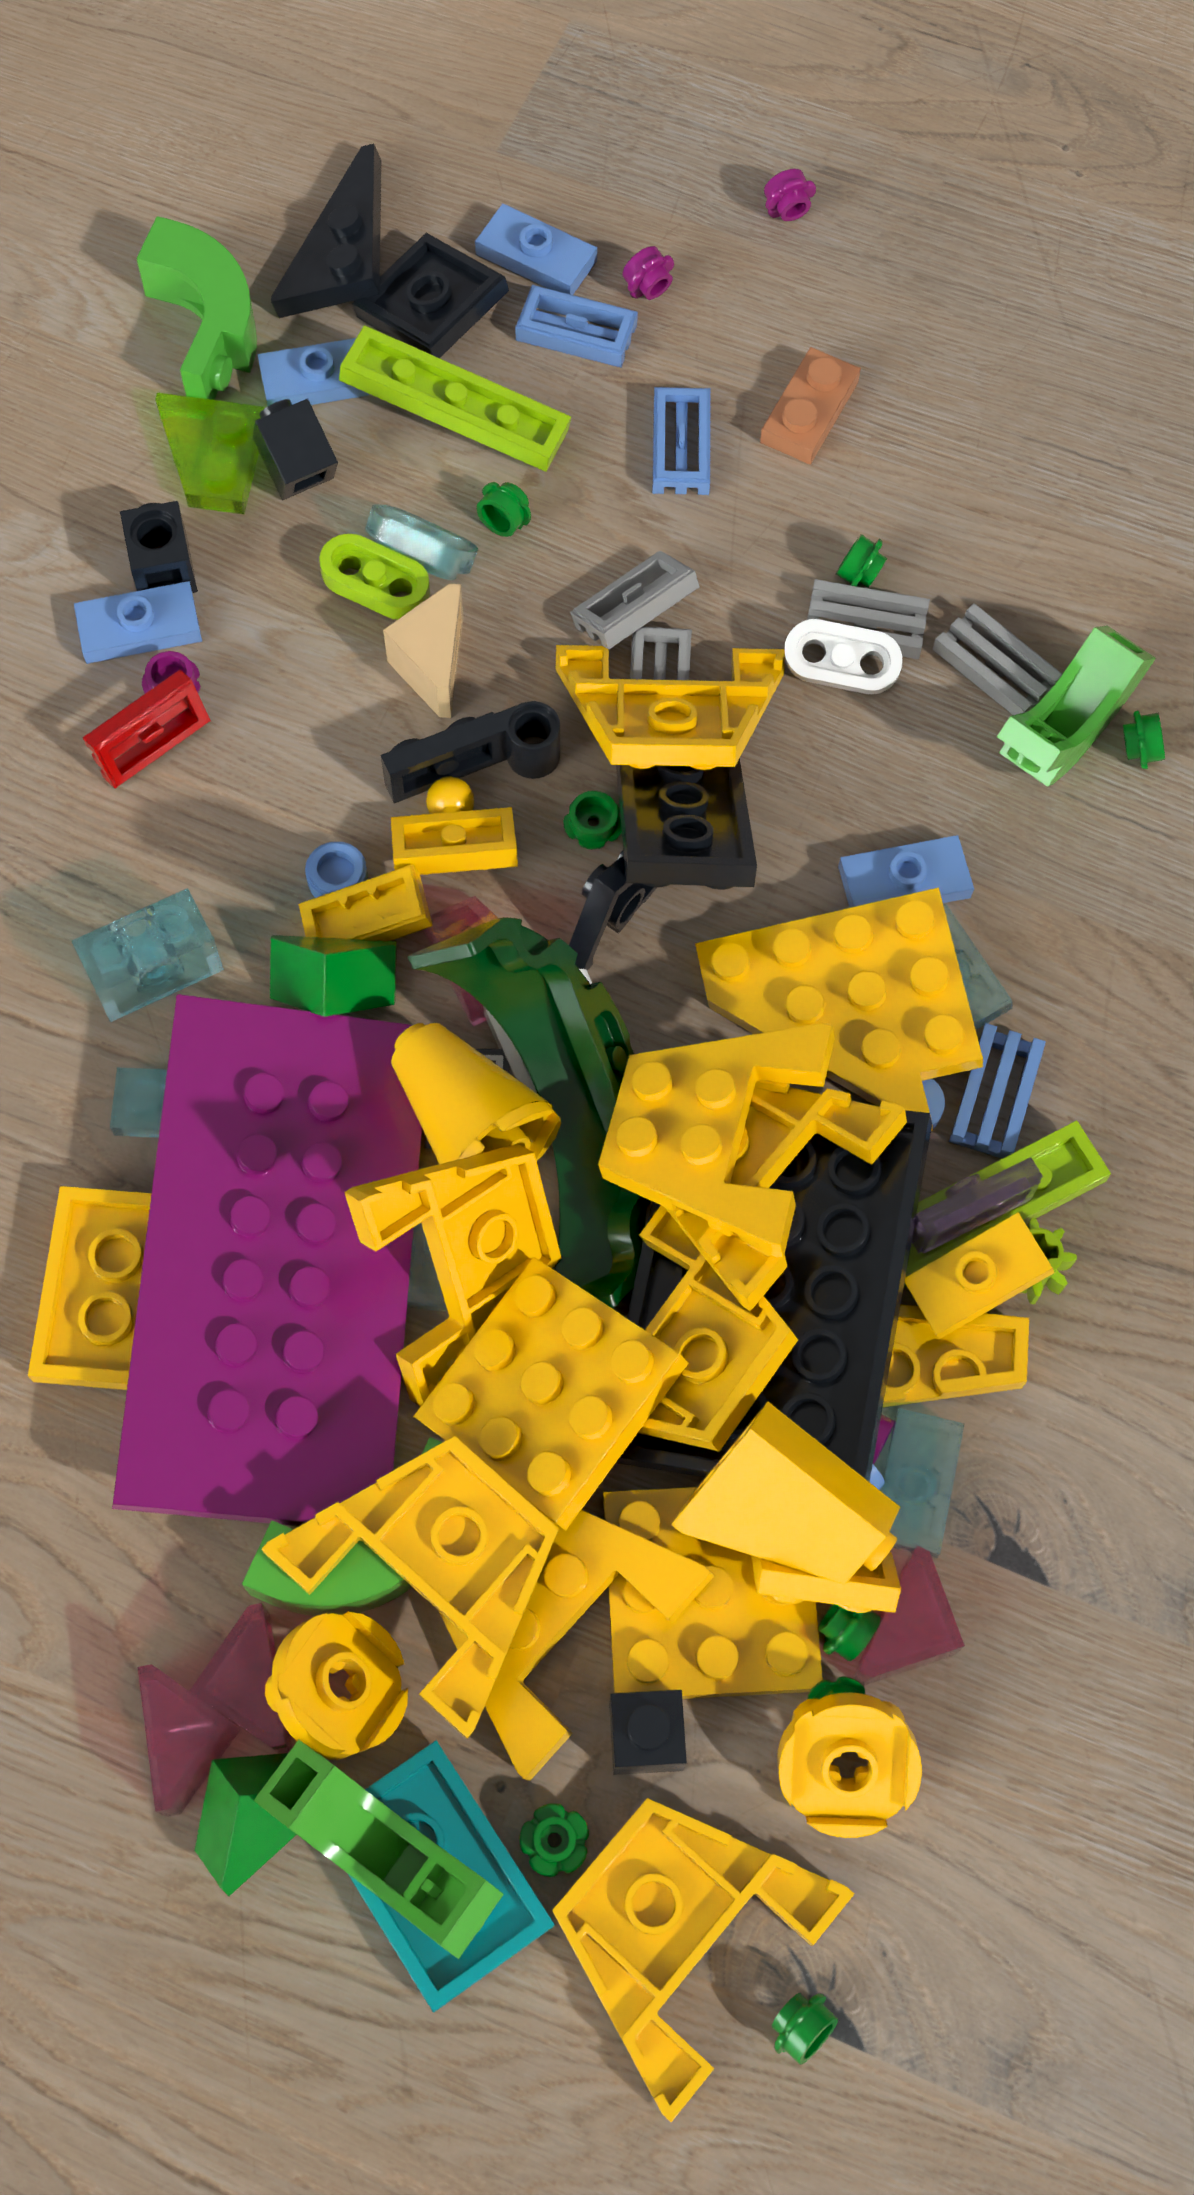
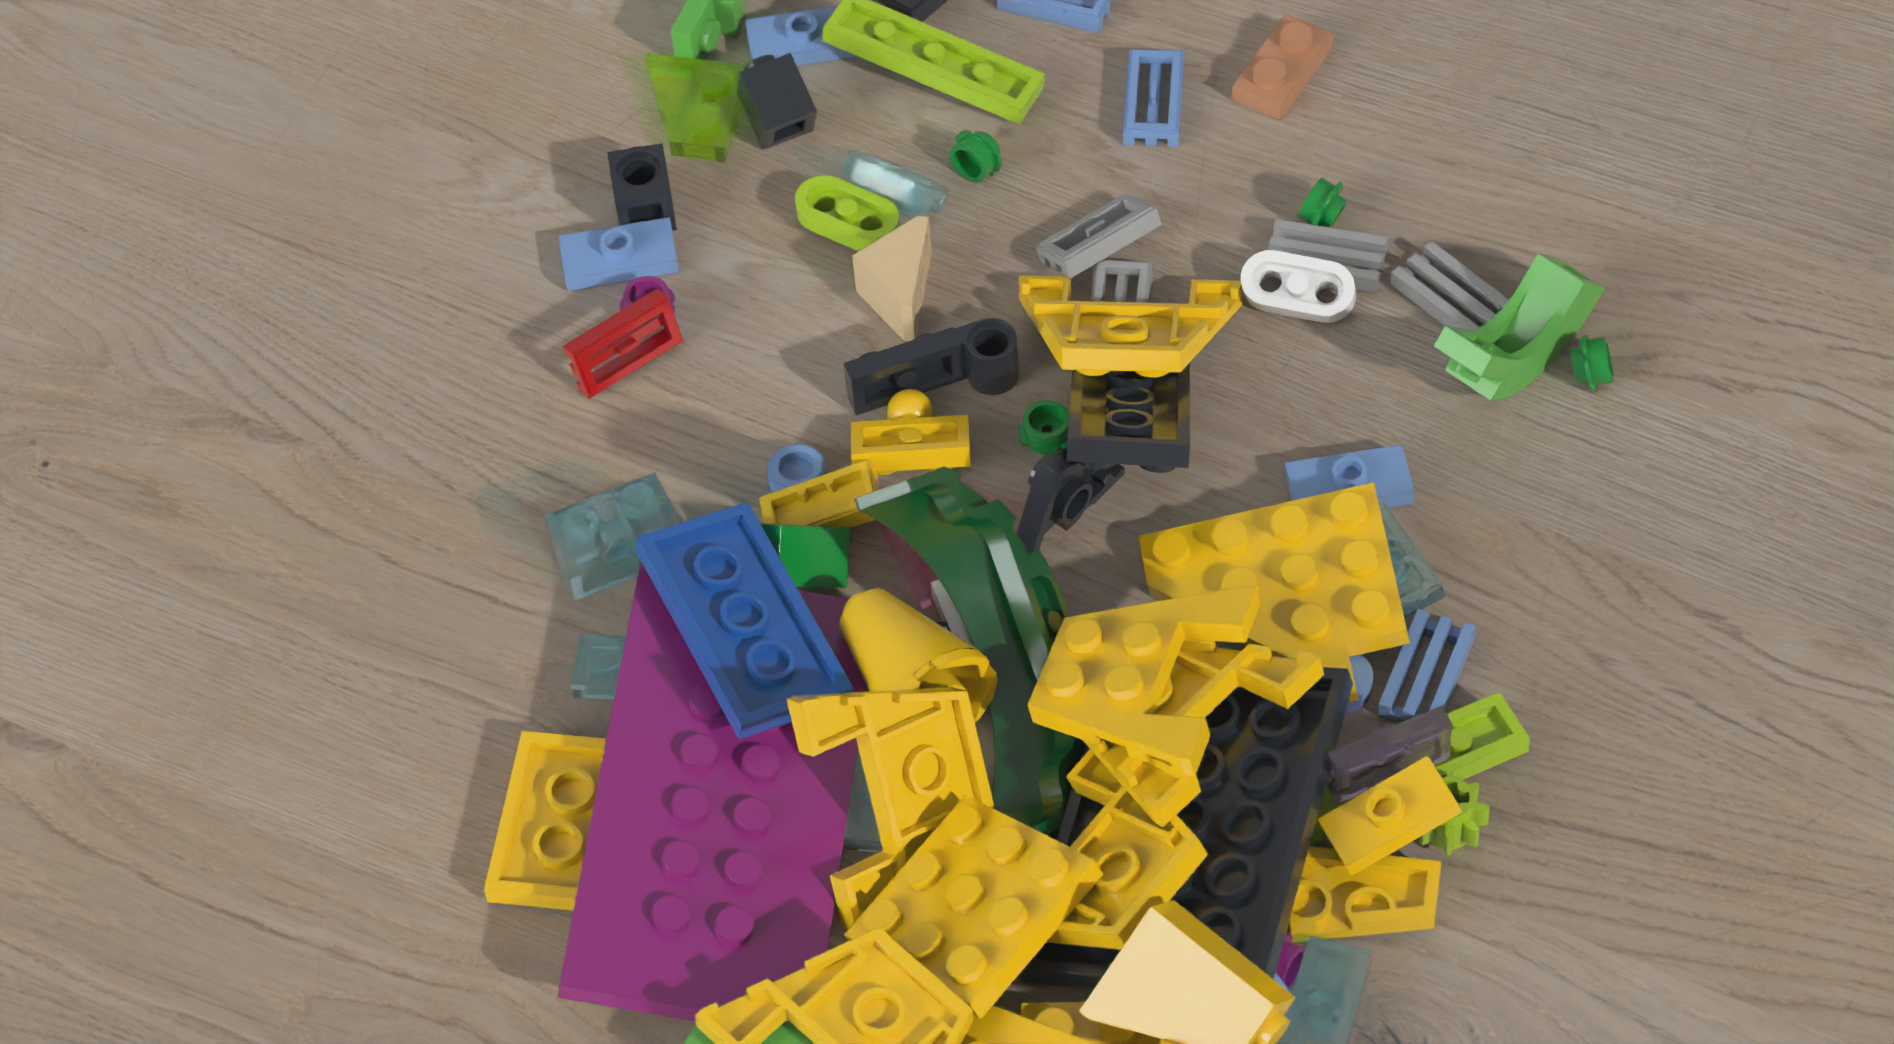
camera: 10 degrees right, 15 degrees down
(290, 1065) = (741, 616): none -> blue plate

